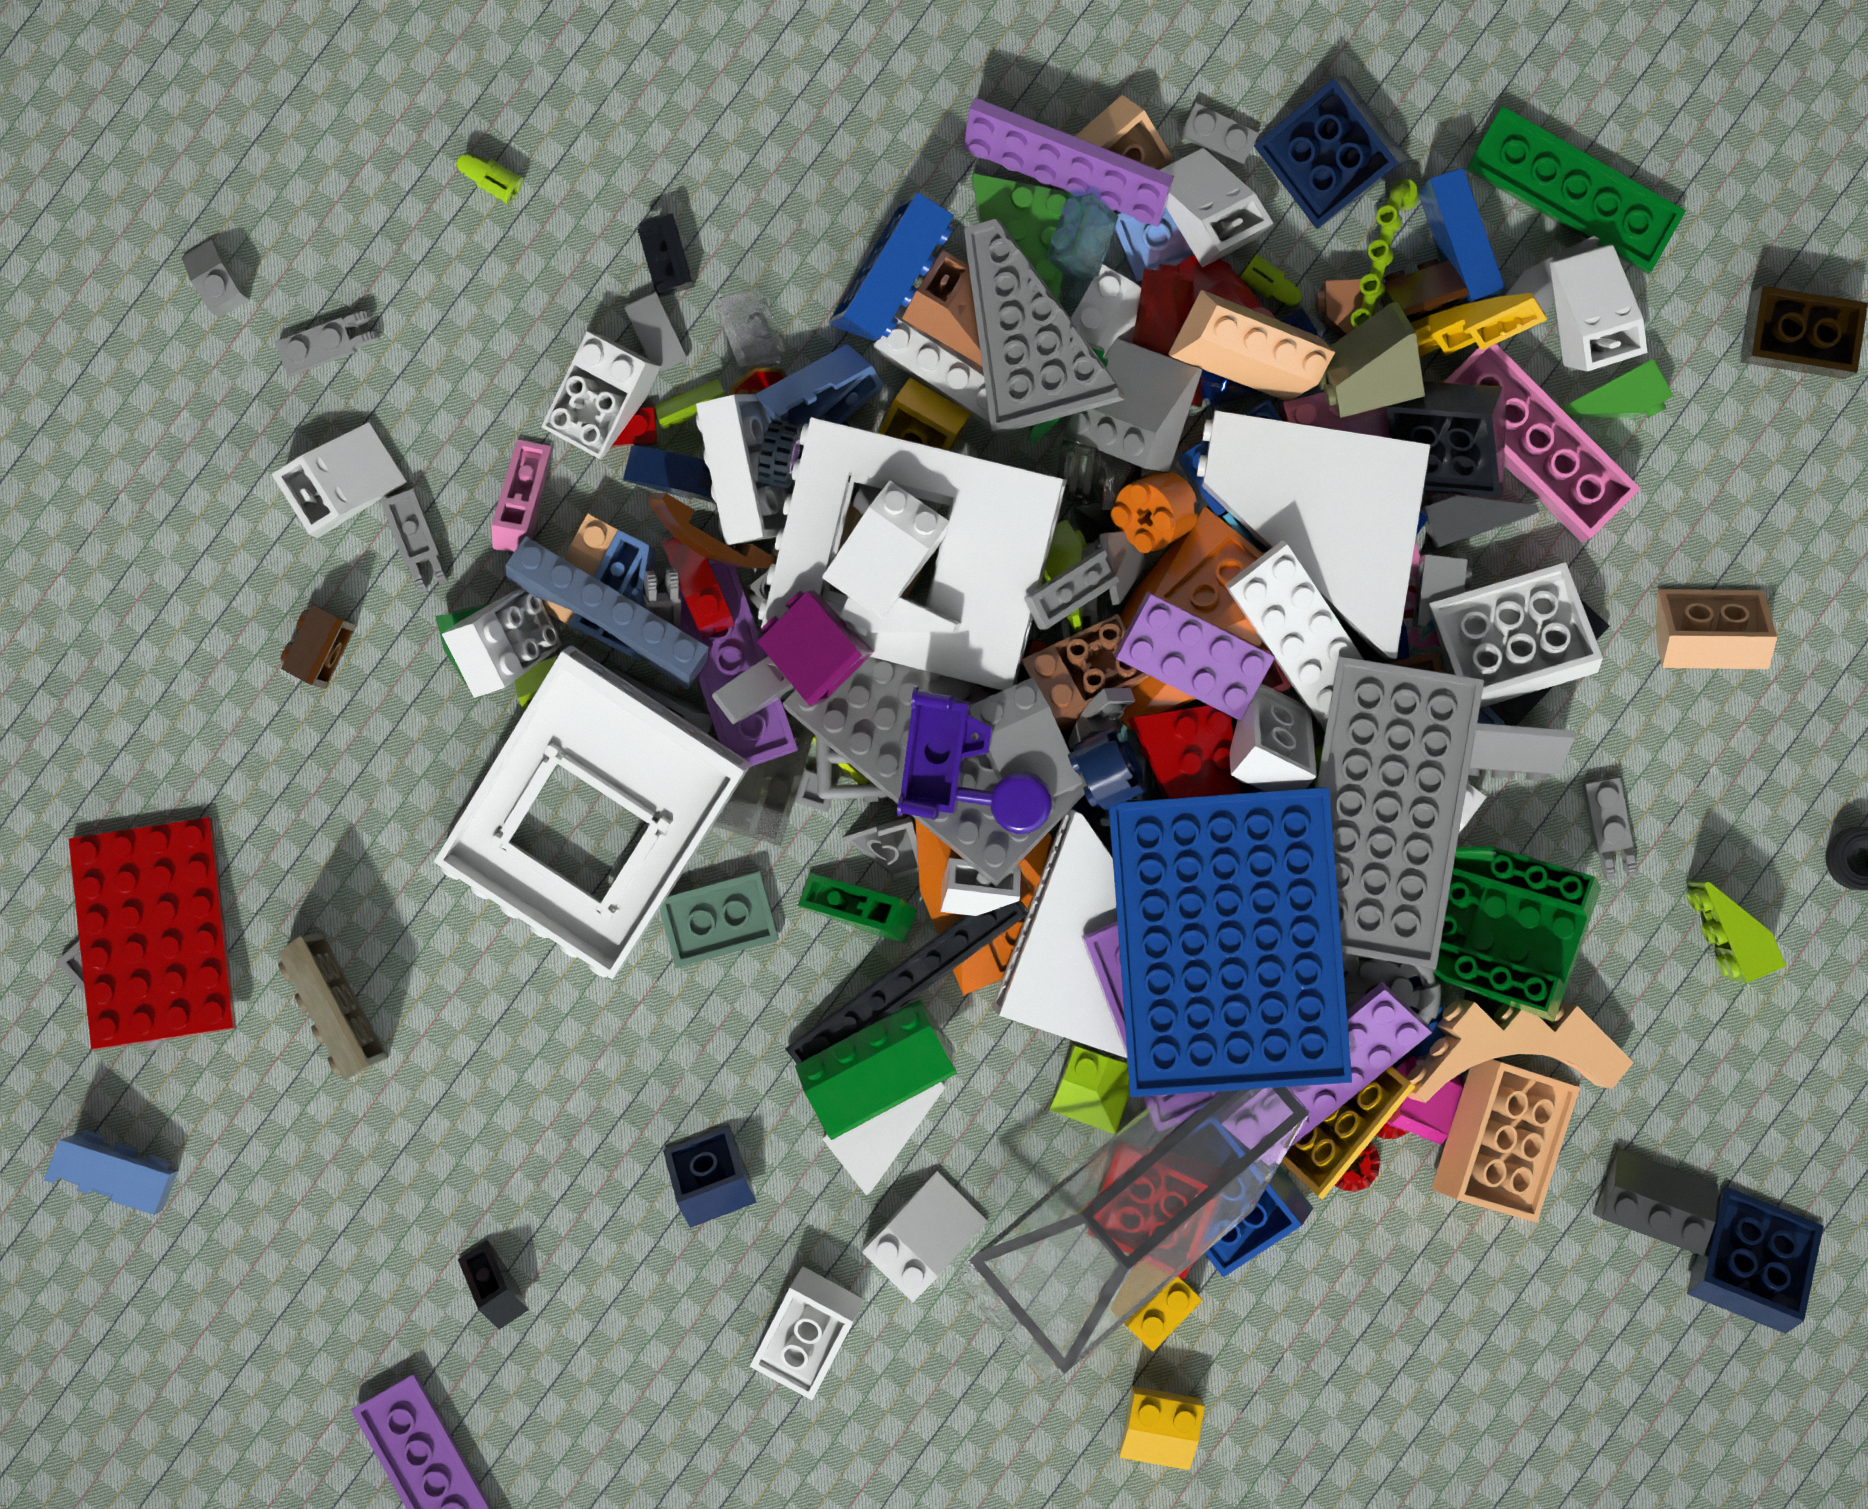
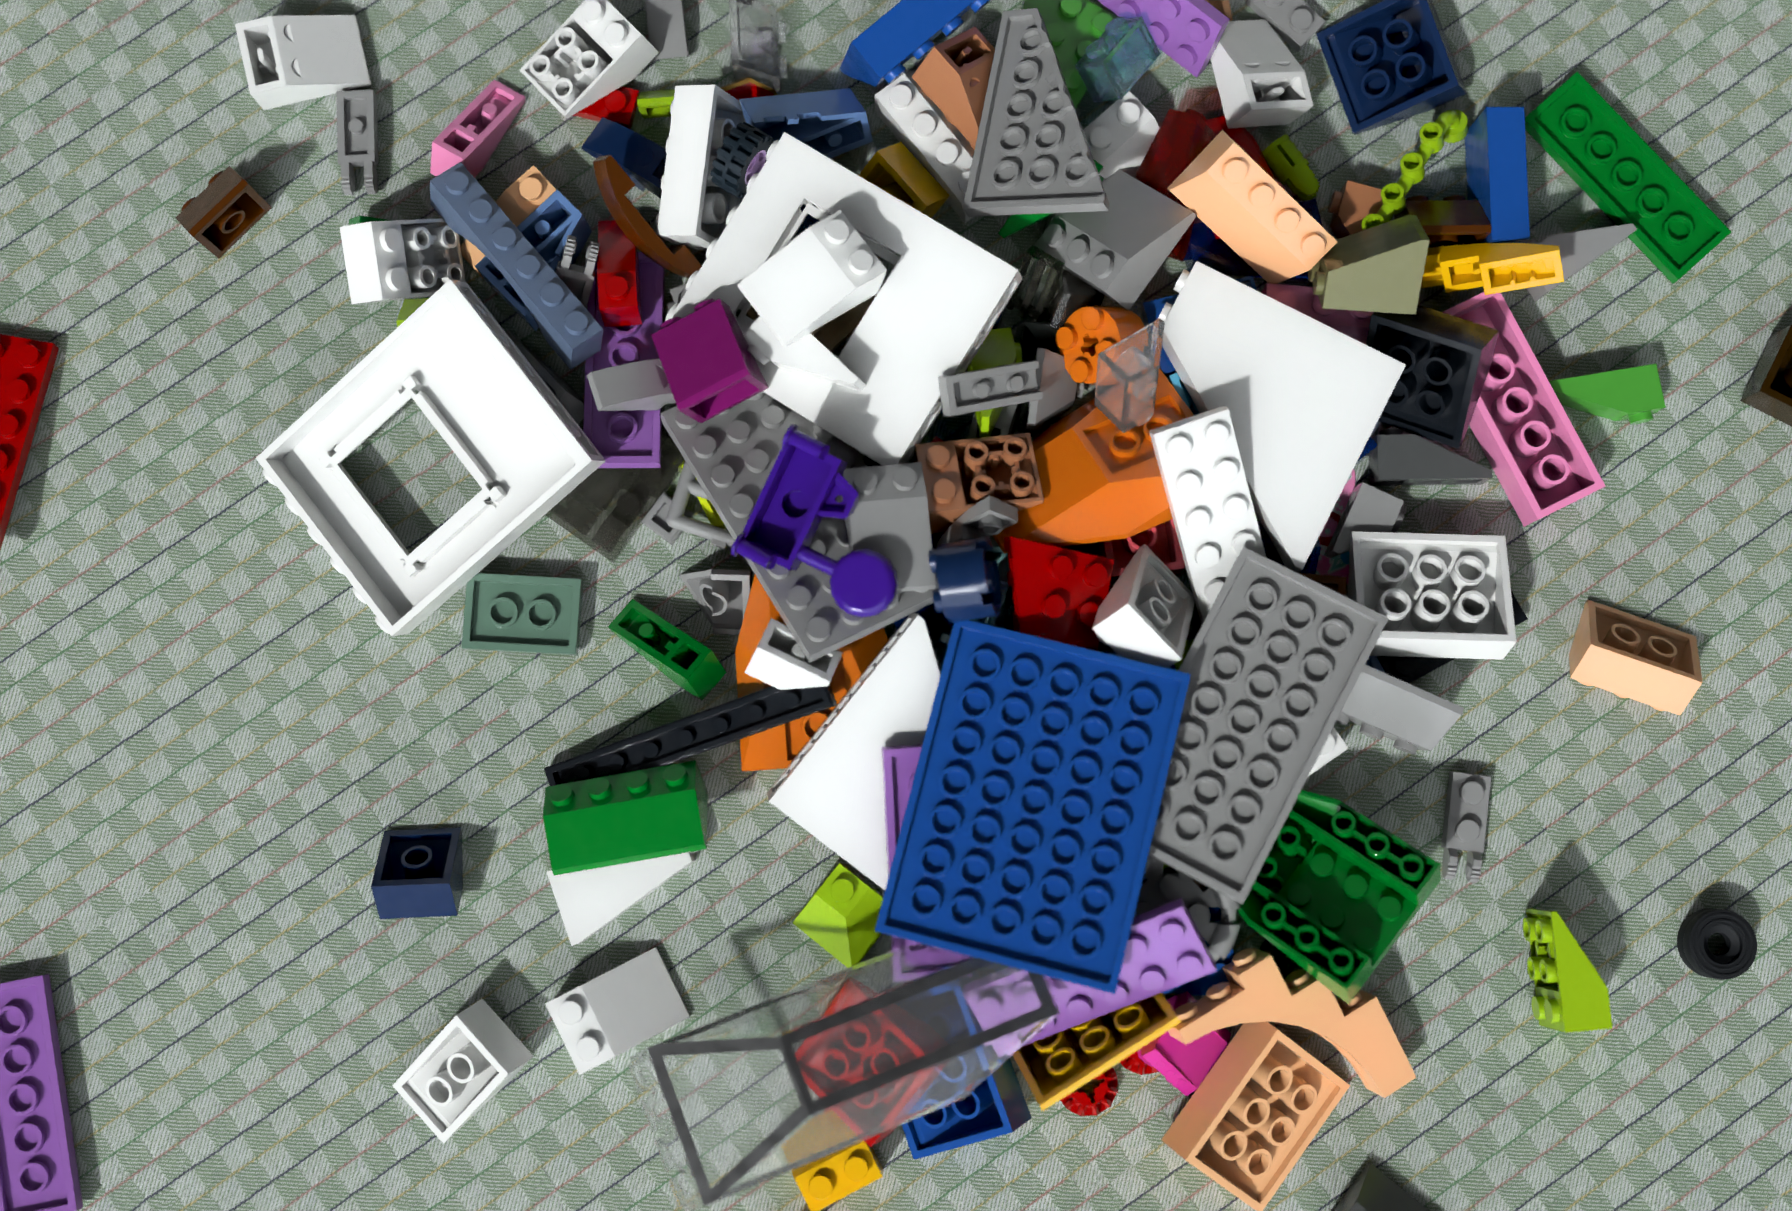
camera: 20 degrees right, 5 degrees down
(331, 1004) = (102, 566): dark tan slope -> none
(492, 1285) = (157, 911): black slope -> none
(1149, 245) = (1181, 90): light blue tile -> none
(1190, 537) = (1130, 377): none -> clear slope
(1193, 656) = (1093, 495): medium lavender plate -> none
(1596, 310) = (1613, 295): white slope -> none

